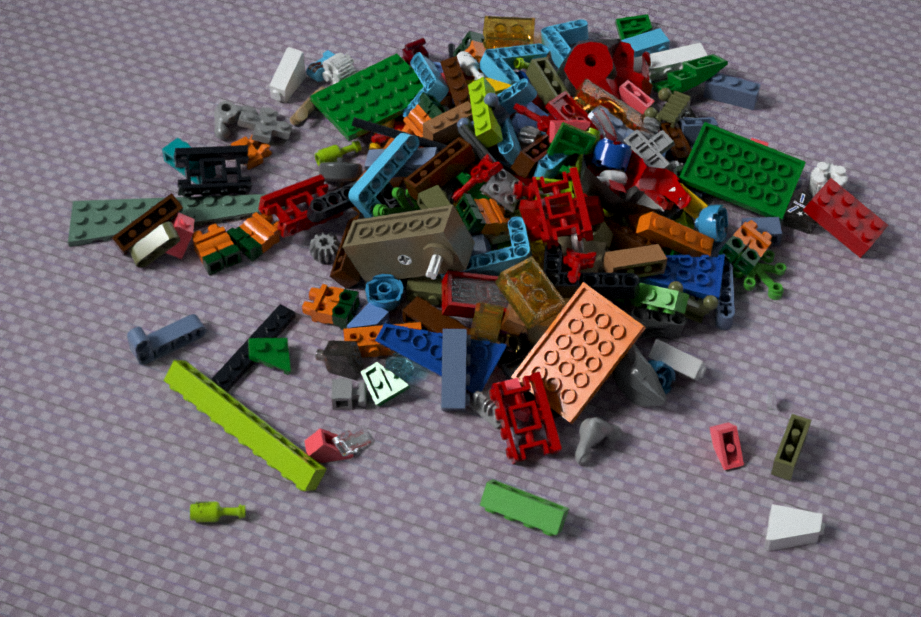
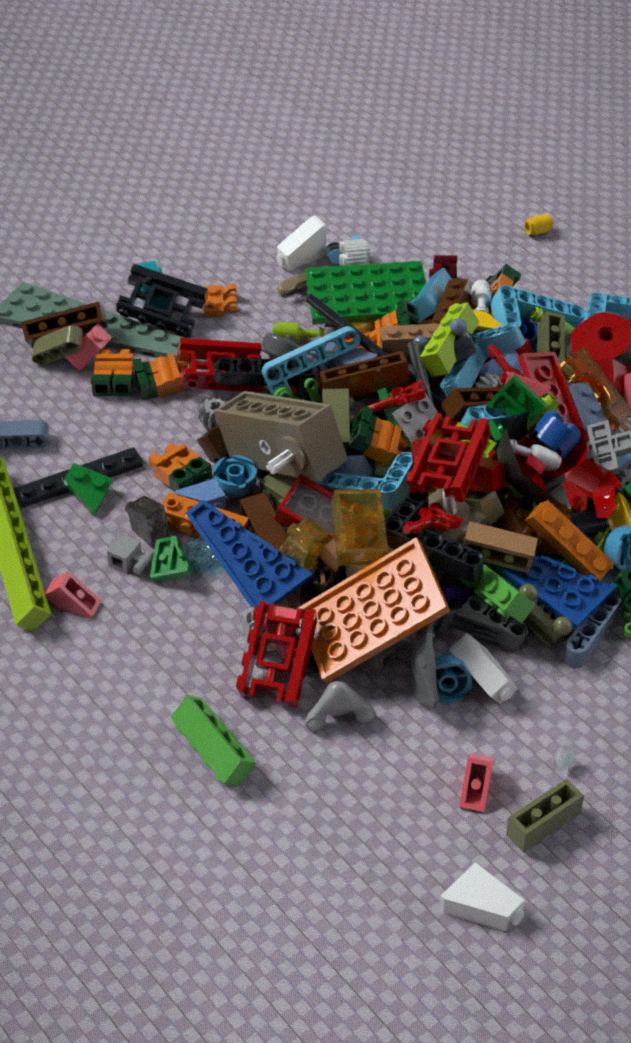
camera: 30 degrees right, 5 degrees down
(226, 114) = (221, 258): light grey head -> none
(264, 125) = (246, 281): light grey plate -> none
(353, 441) = (98, 602): clear slope -> none
(454, 370) = (242, 575): sand blue brick -> none
(508, 31) = (555, 282): clear yellow brick -> none
(604, 124) = (575, 405): slope -> none

